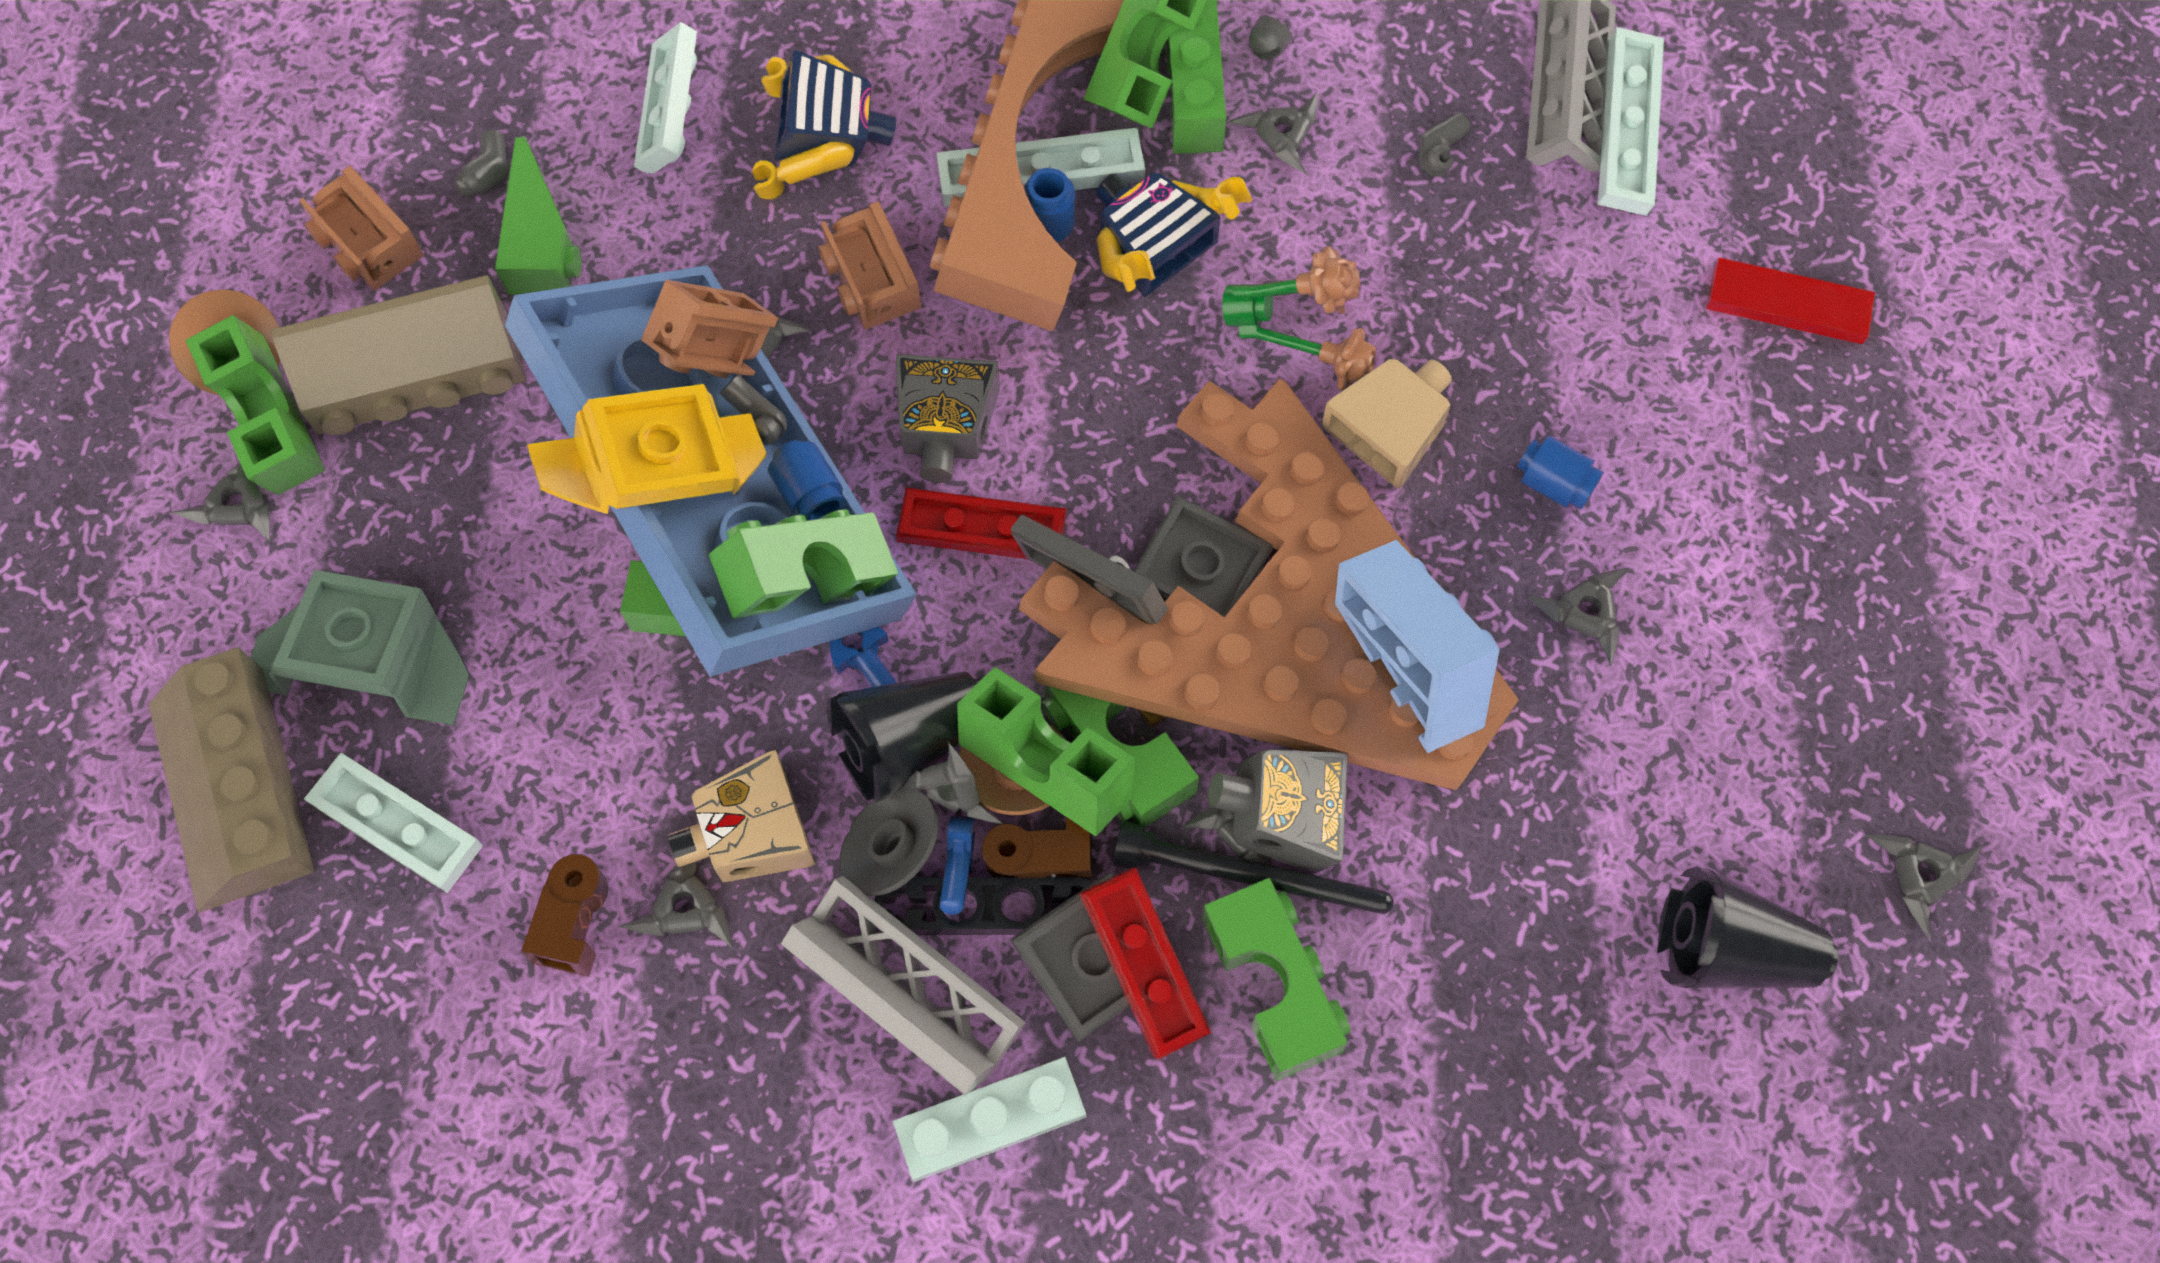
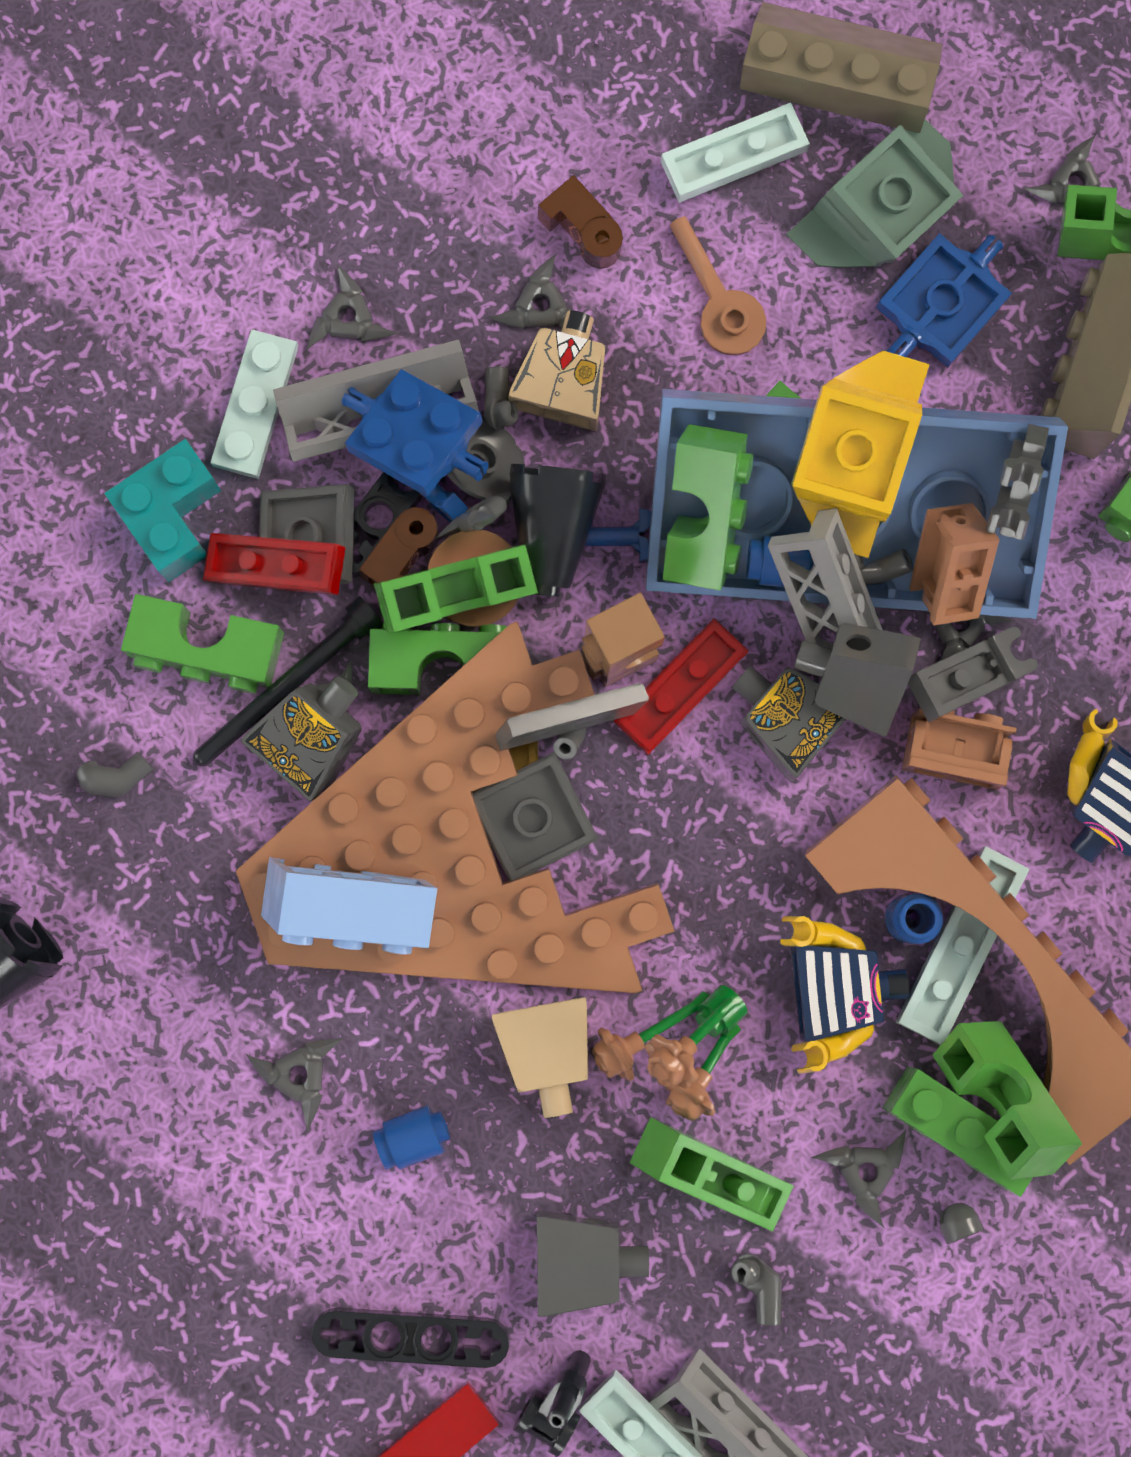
camera: 120 degrees right, 15 degrees up
(436, 534) = (944, 299): none -> blue plate
(577, 717) = (732, 318): none -> nougat piece
(597, 303) = (1026, 472): none -> dark grey plate
(799, 285) = (969, 675): none -> dark grey plate
(817, 876) = (497, 408): none -> dark grey arm
(823, 397) = (837, 579): none -> light grey fence
(847, 1105) = (347, 299): none -> dark grey piece
(864, 348) = (861, 674): none -> dark grey torso
(913, 904) = (414, 433): none -> blue plate
(987, 565) = (621, 640): none -> medium nougat arch
(1170, 1132) = (155, 502): none -> teal brick
(1388, 234) = (710, 1174): none -> bright green slope
(1474, 970) = (111, 781): none -> dark grey arm
(1542, 276) = (582, 1263): none -> dark grey torso
(1669, 213) = (553, 1415): none -> black piece
(1723, 364) = (411, 1328): none -> black beam

